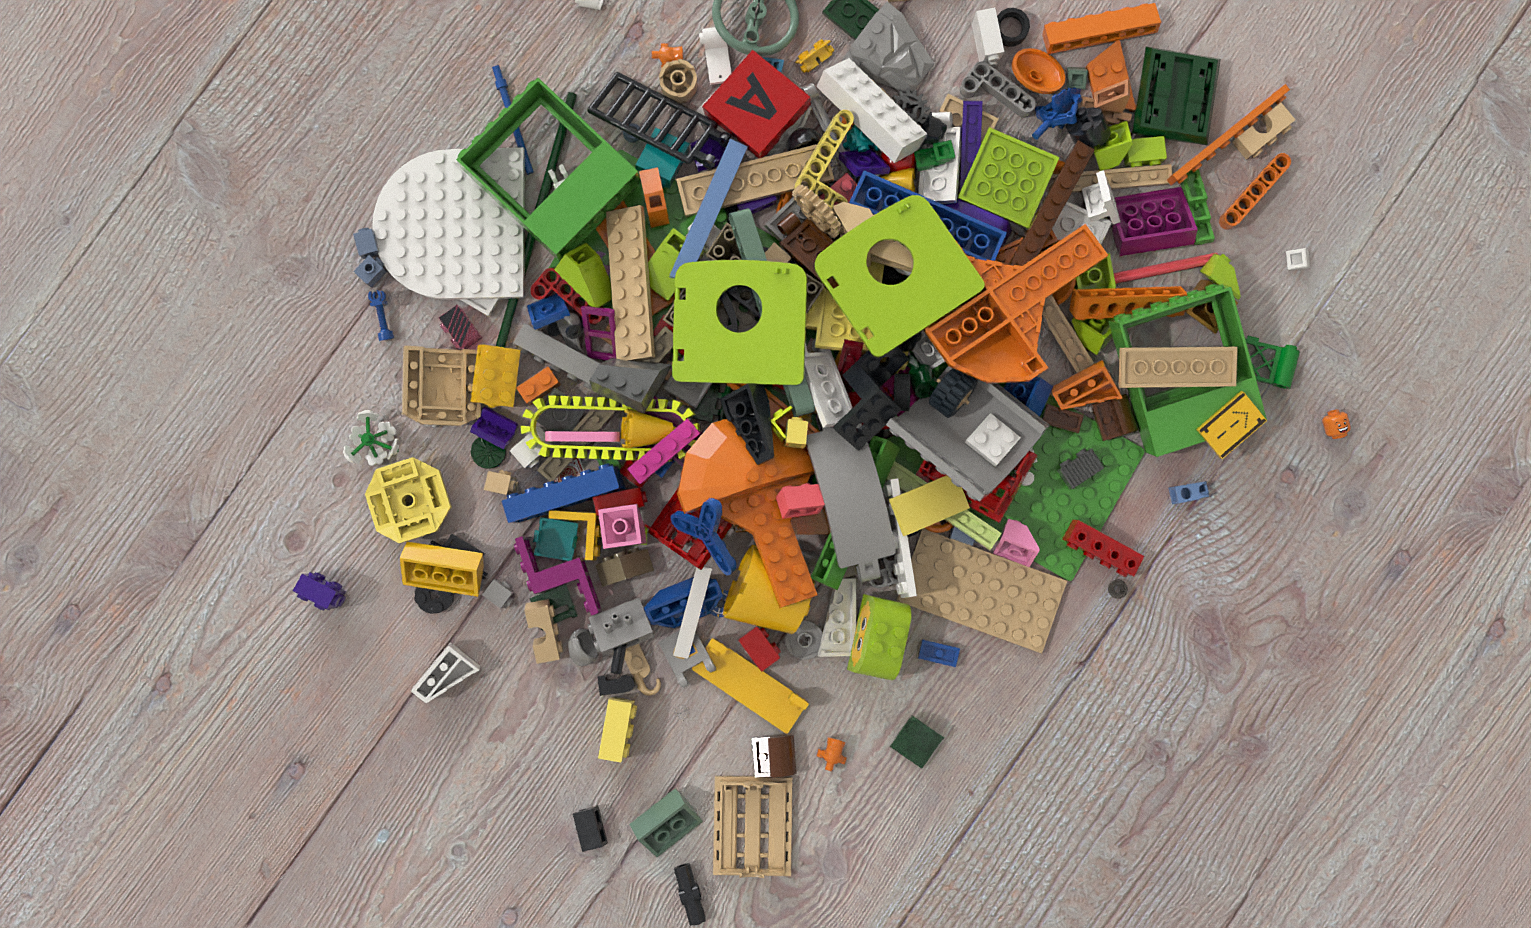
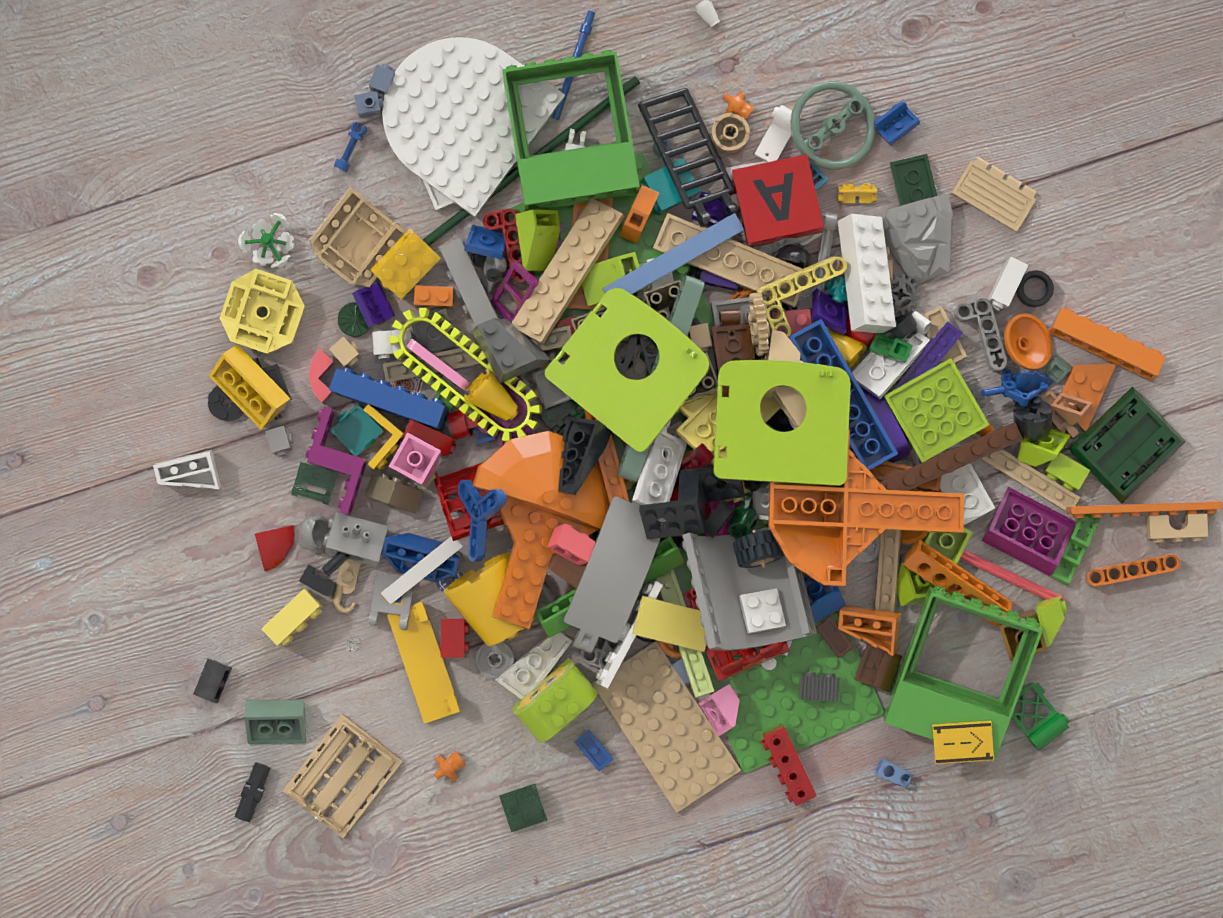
camera: 35 degrees right, 0 degrees up
(321, 592) = (142, 338): dark purple brick -> none
(459, 327) = (406, 203): brick -> none
(487, 510) = (319, 367): none -> coral brick
(541, 615) = (299, 482): tan arch -> none
(559, 681) = (274, 545): none -> red brick
(664, 451) = (494, 425): dark pink plate -> none
(774, 756) = (401, 733): reddish brown brick -> none
(777, 416) = (603, 464): neon yellow bracket -> none
(796, 433) = (608, 488): light yellow brick -> none
(1100, 200) = (998, 484): white bracket -> none
(1123, 589) = (783, 807): clear smoke plate -> none
(1177, 367) = (952, 663): tan plate -> none
(1298, 259) = (1127, 652): white slope -> none
(1336, 424) = (1054, 808): orange head -> none

